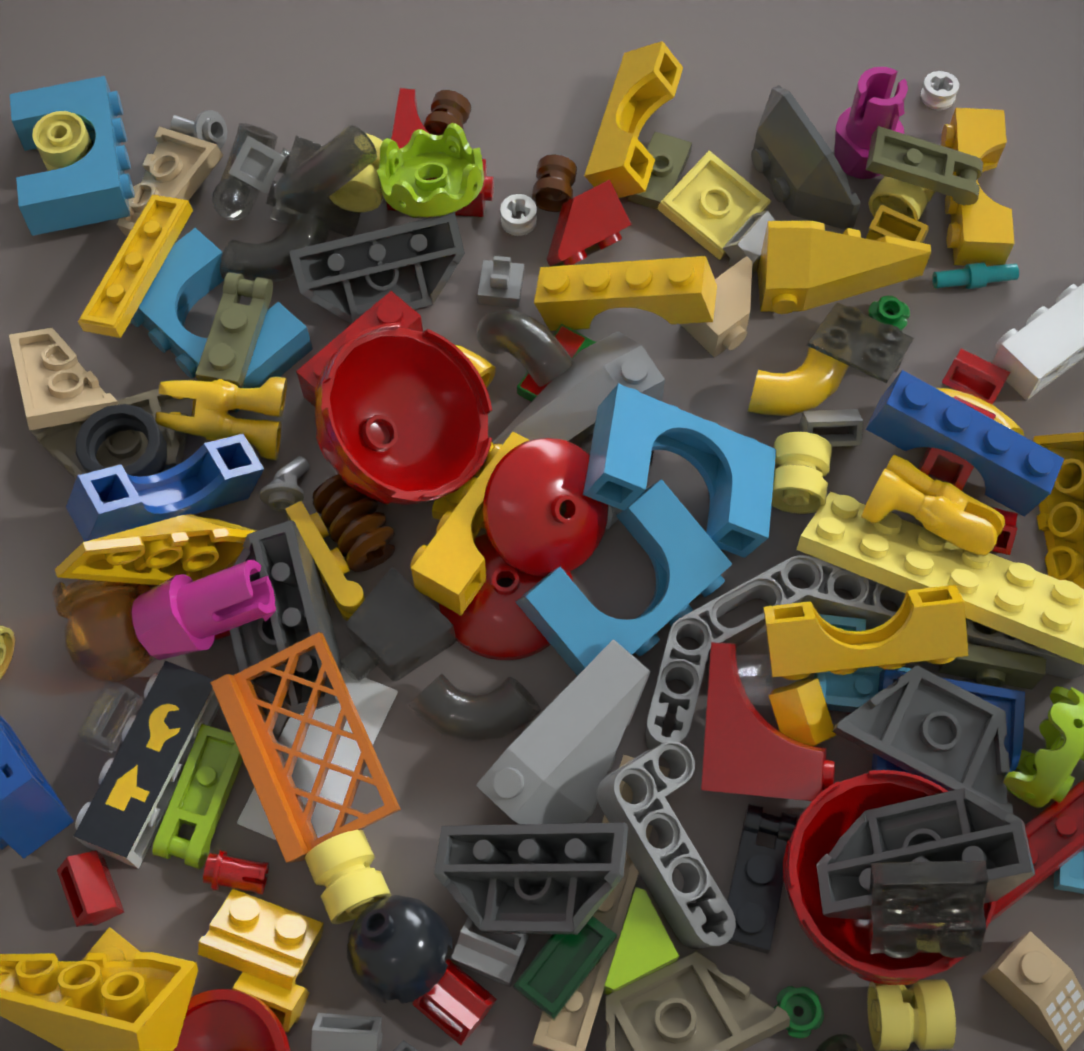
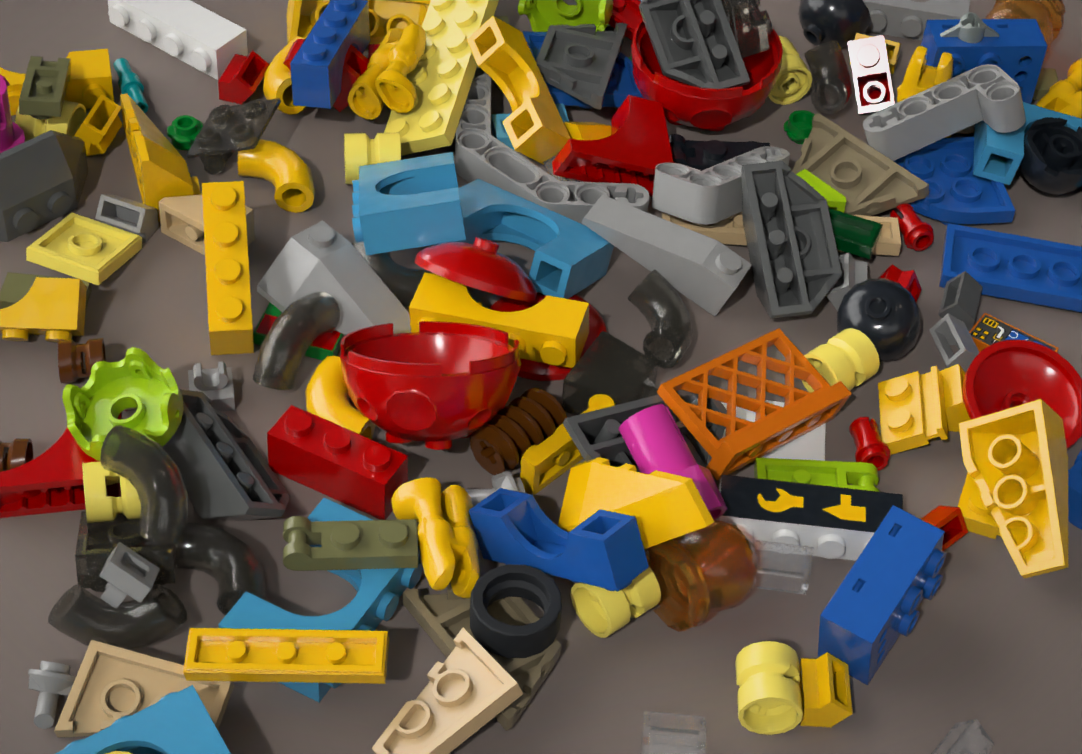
camera: 110 degrees left, 20 degrees down
(587, 220) = (133, 319): red slope -> none
(835, 418) = (318, 150): light grey piece -> none

